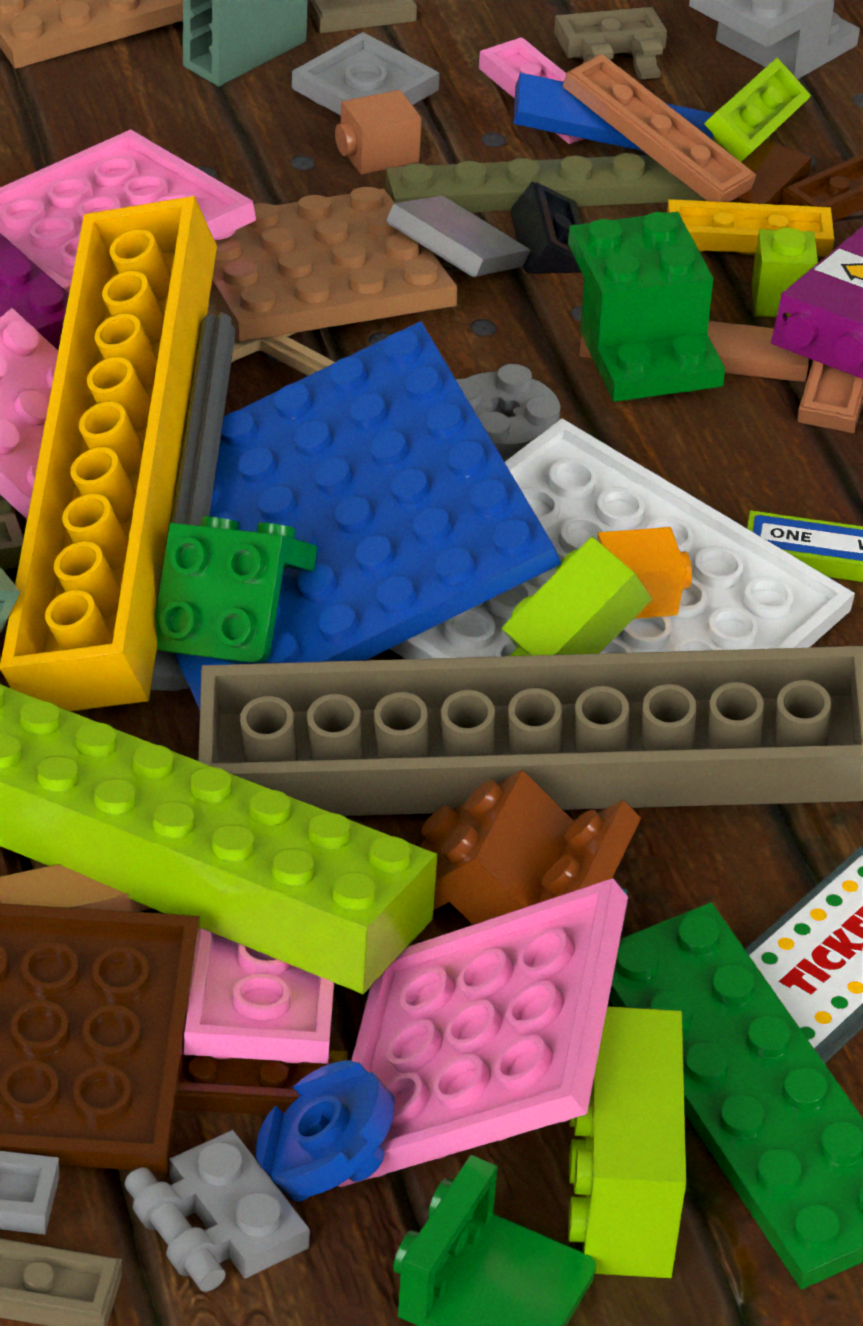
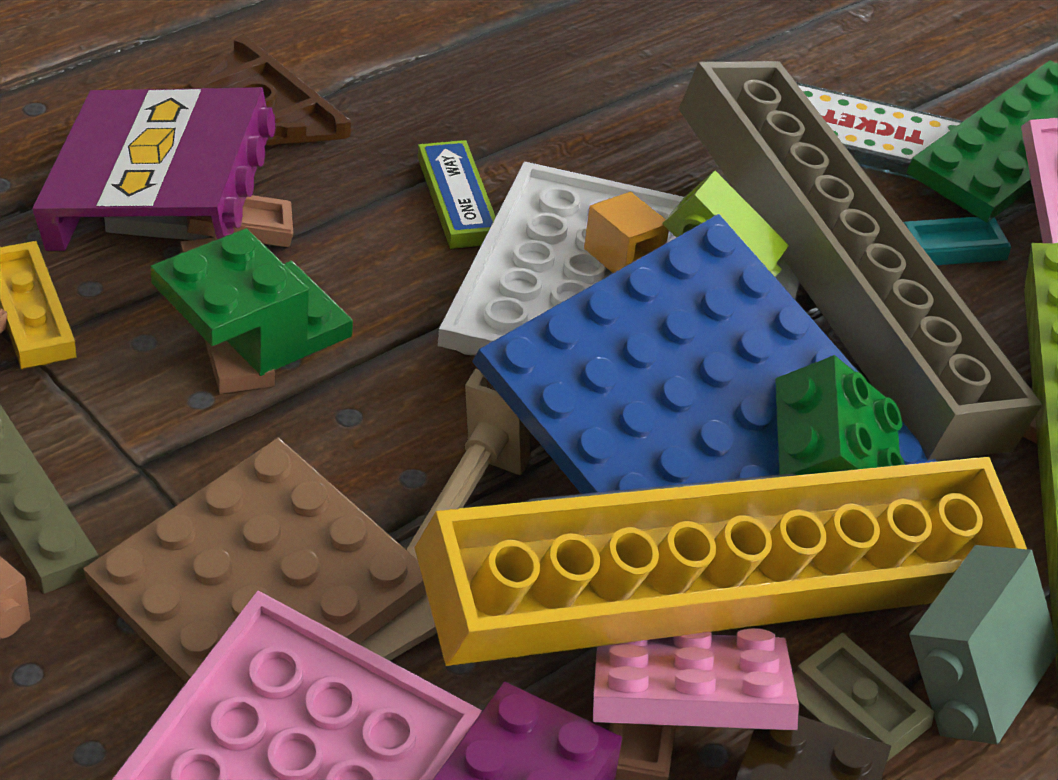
camera: 115 degrees left, 0 degrees up
(457, 235) = (172, 470): light grey tile -> none
(514, 394) = (405, 381): light grey plate -> none
(520, 848) = (961, 233): dark orange bracket -> none
(542, 225) = (91, 442): black slope -> none
(779, 262) = (110, 260): lime brick -> none

